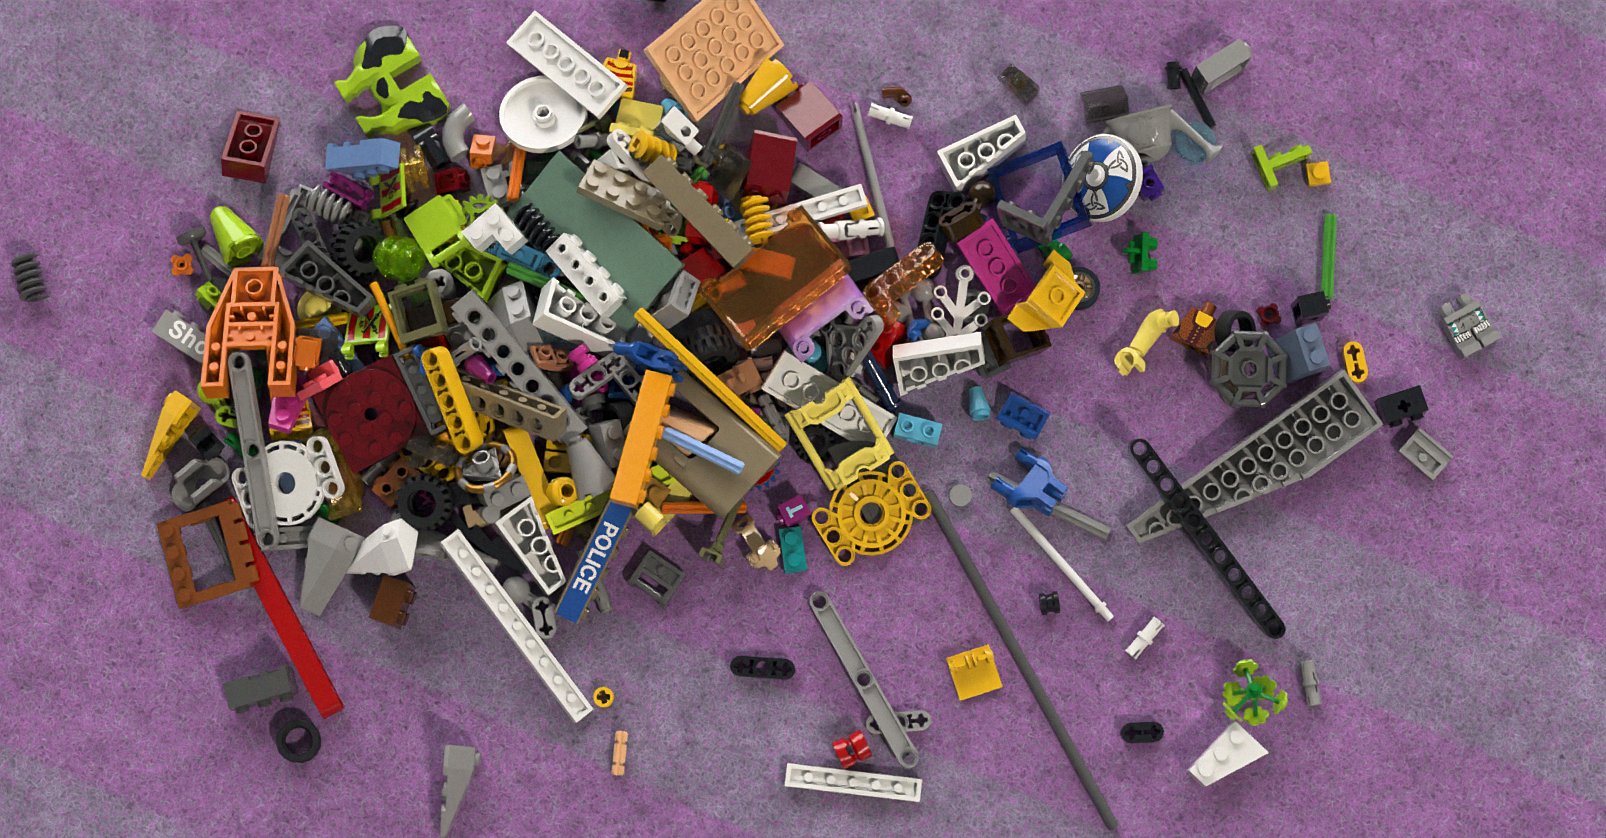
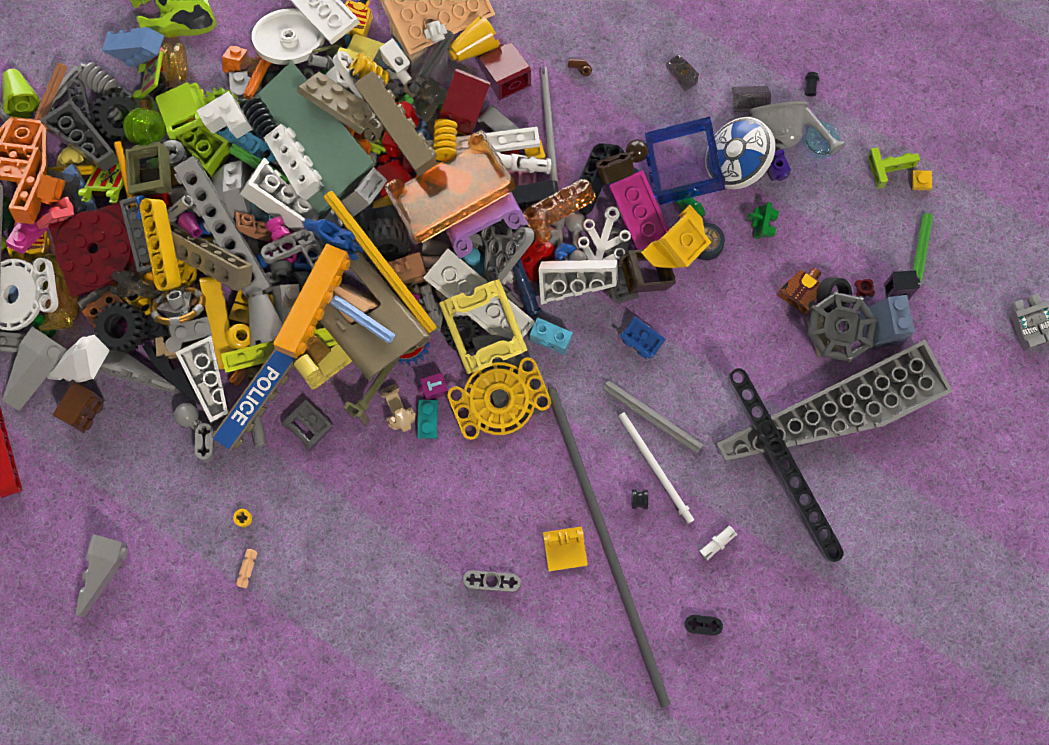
camera: 10 degrees right, 5 degrees down
(250, 147) = (47, 28): dark red slope -> none
(349, 190) = (125, 77): magenta hinge -> none
(431, 147) = (193, 49): black piece -> none
(452, 181) = (205, 77): dark red bracket -> none
(454, 131) = (214, 40): light grey cylinder -> none
(516, 626) = (178, 444): white plate -> none
(691, 507) = (350, 369): orange axle -> none
(722, 88) = (435, 31): none -> white gear
(746, 660) = (370, 506): black beam -> none
(853, 782) = (443, 627): white plate -> none
(858, 745) = (453, 595): red wheel -> none
(871, 693) = (472, 552): light grey beam -> none
(890, 116) = (571, 81): white pin -> none
(960, 495) = (578, 396): light grey tile -> none
(972, 156) = (636, 119): white wedge -> none
(978, 404) = (606, 324): medium azure cone -> none
(1032, 489) = (644, 400): blue connector -> none
(1040, 229) = (680, 180): dark grey bracket -> none
(1149, 331) = (756, 290): light yellow piece -> none
(1197, 98) = (828, 104): black bar -> none
(1221, 66) = (853, 80): light grey window -> none
(1225, 755) = (775, 657): white wedge -> none
(1259, 688) = (811, 603): lime plant -> none
(1310, 683) = (858, 606): light grey pin -> none
(1359, 361) = (938, 336): yellow beam -> none
(1411, 398) = (978, 375): black brick -> none
(1425, 454) = (985, 424): light grey plate -> none

